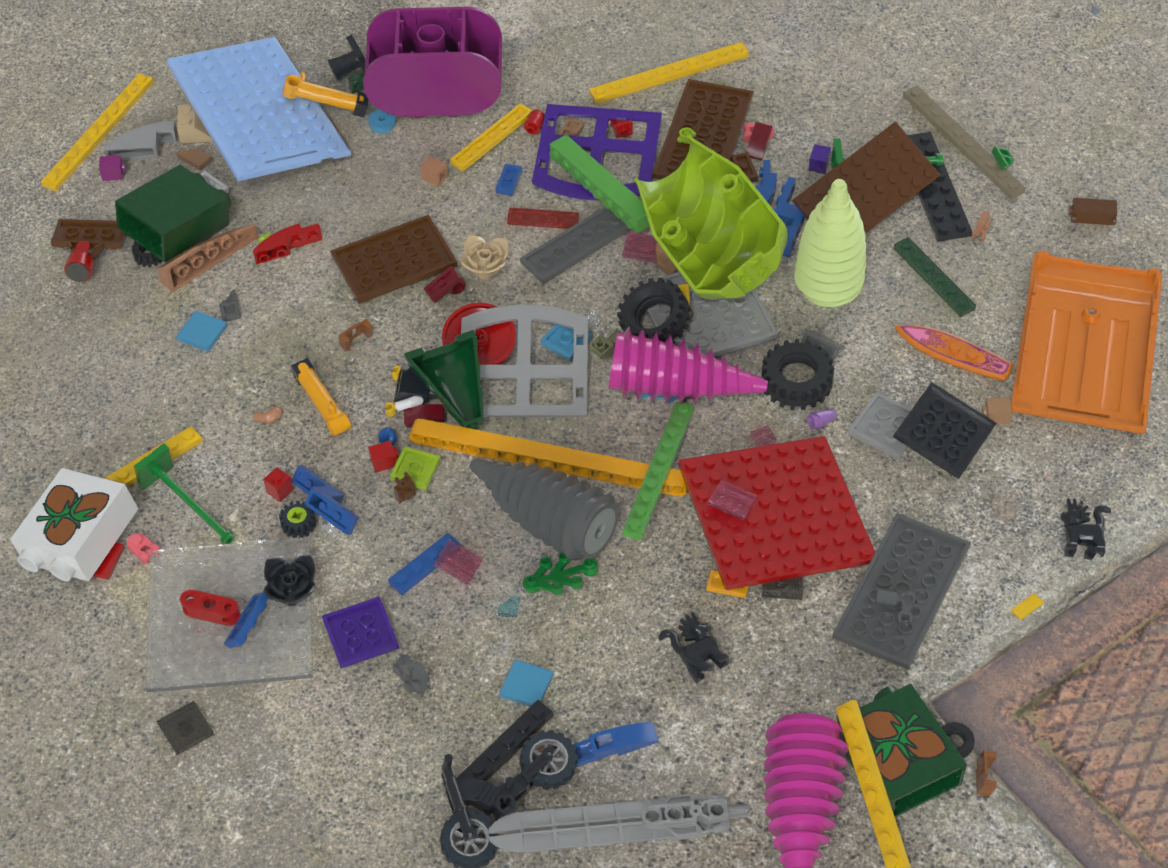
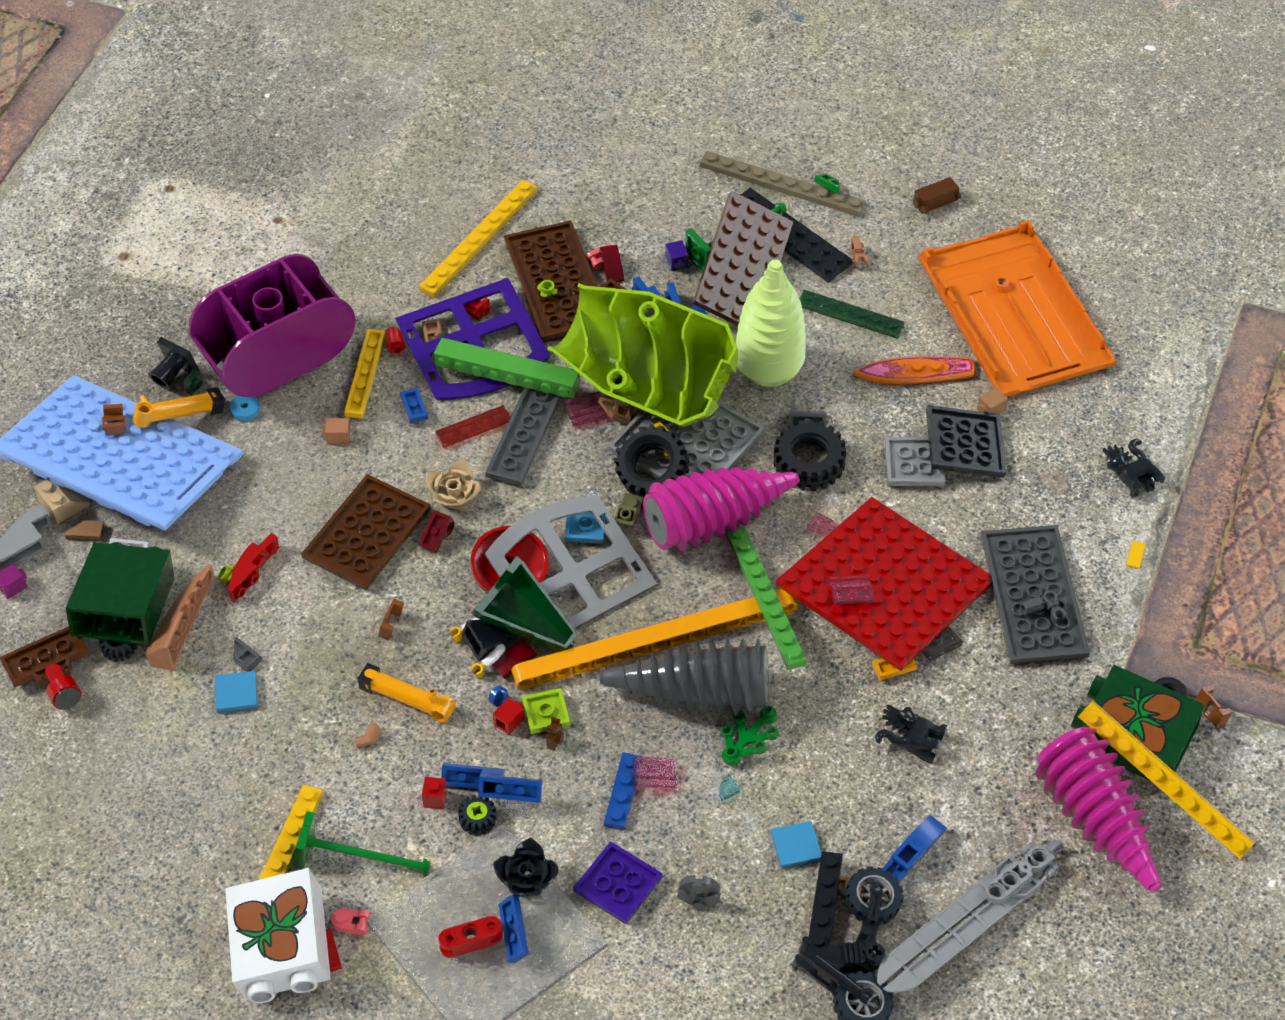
camera: 35 degrees left, 0 degrees up
(273, 76) = (113, 412): none -> dark orange piece
(818, 419) = (856, 484): medium lavender cone -> none

